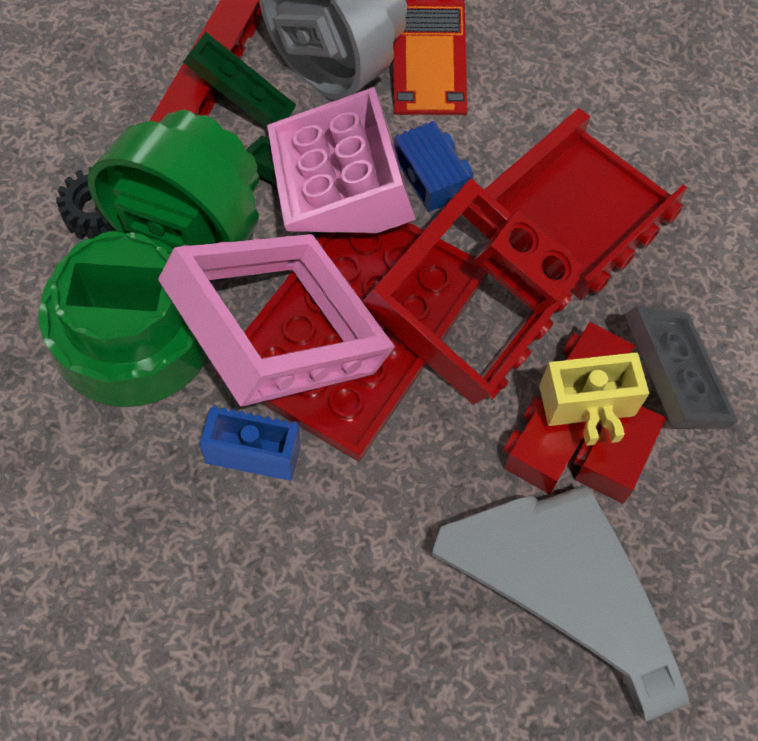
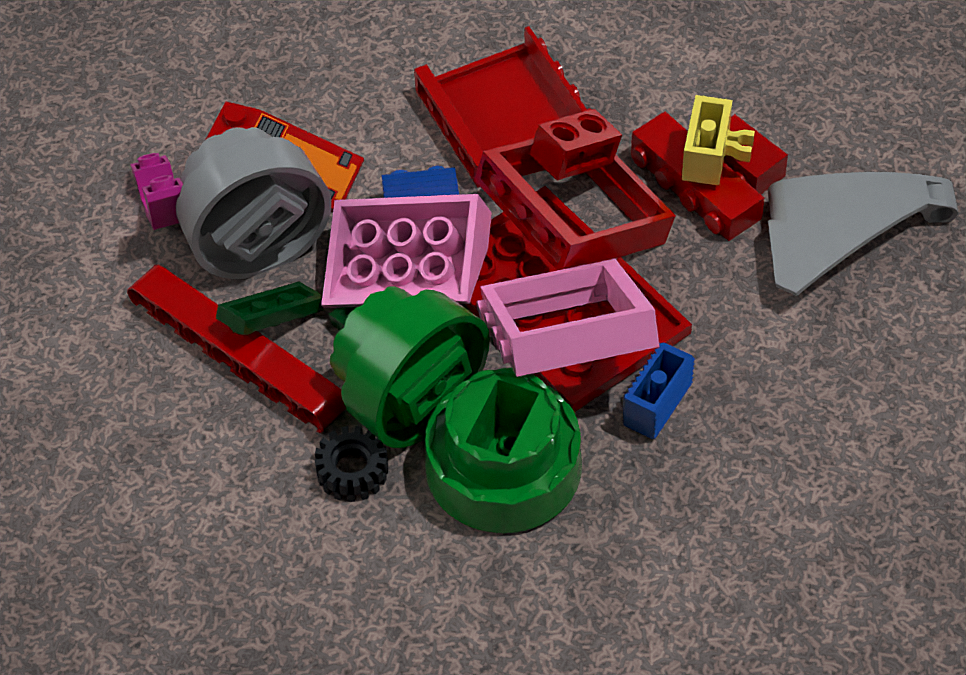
camera: 65 degrees left, 10 degrees down
(680, 369) = (679, 92): flat silver plate -> none

